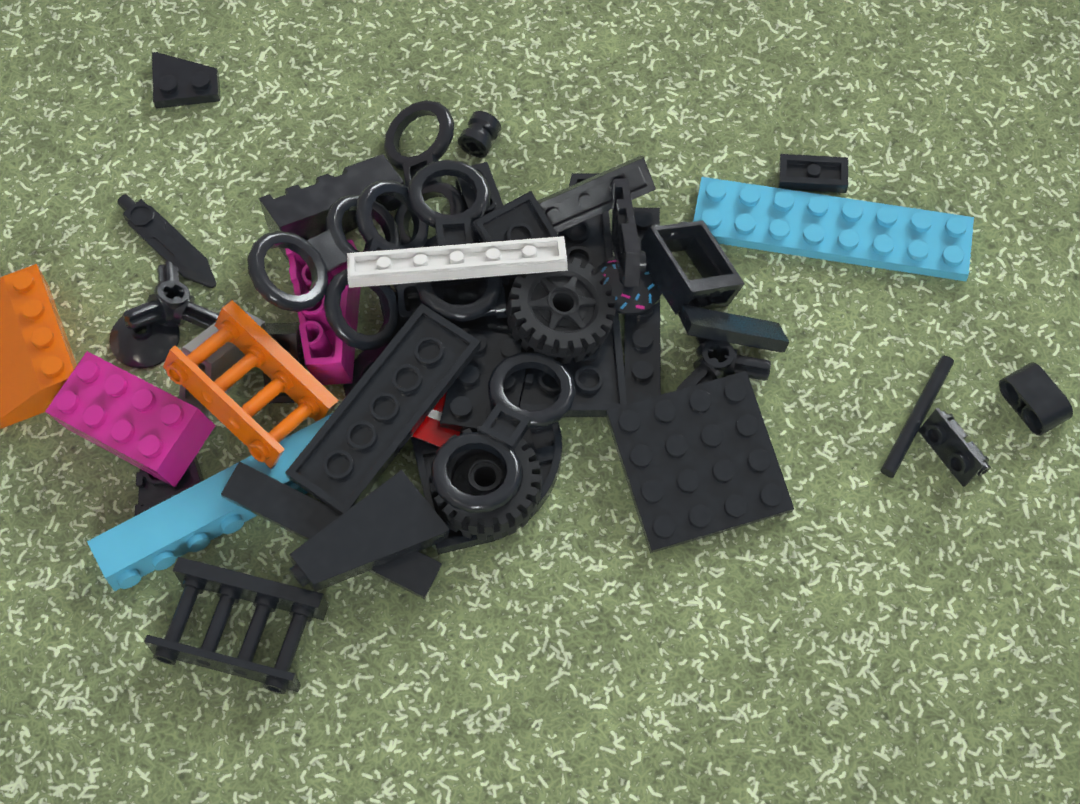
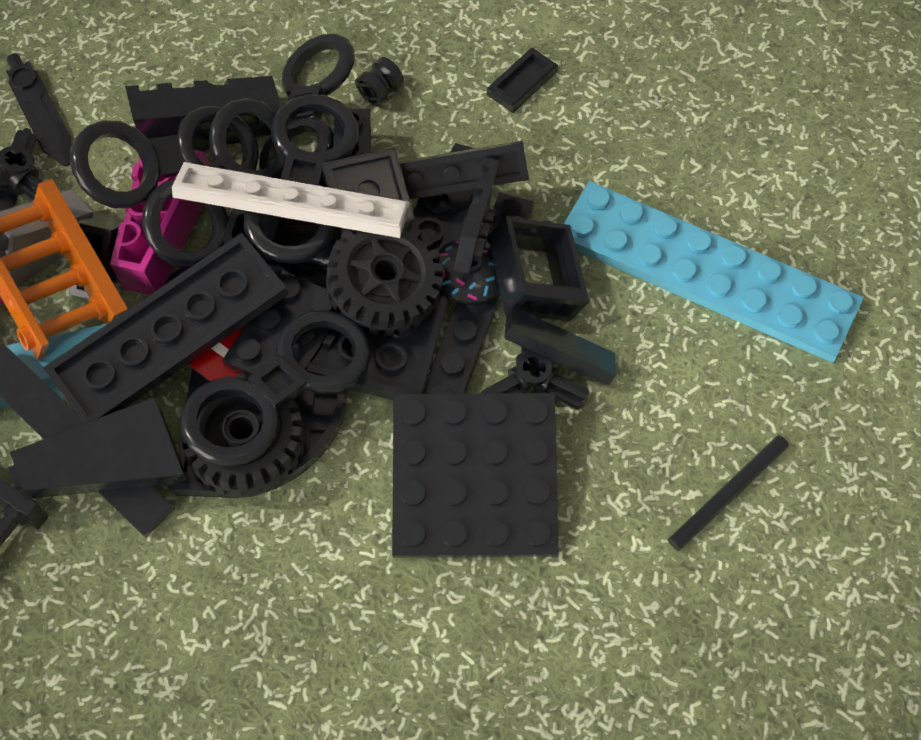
camera: 15 degrees right, 0 degrees up
(606, 100) = (522, 80): none -> black tile
(813, 173) = (707, 207): black plate -> none
(948, 443) = (750, 523): black hinge -> none
(1036, 398) = (863, 510): black beam -> none

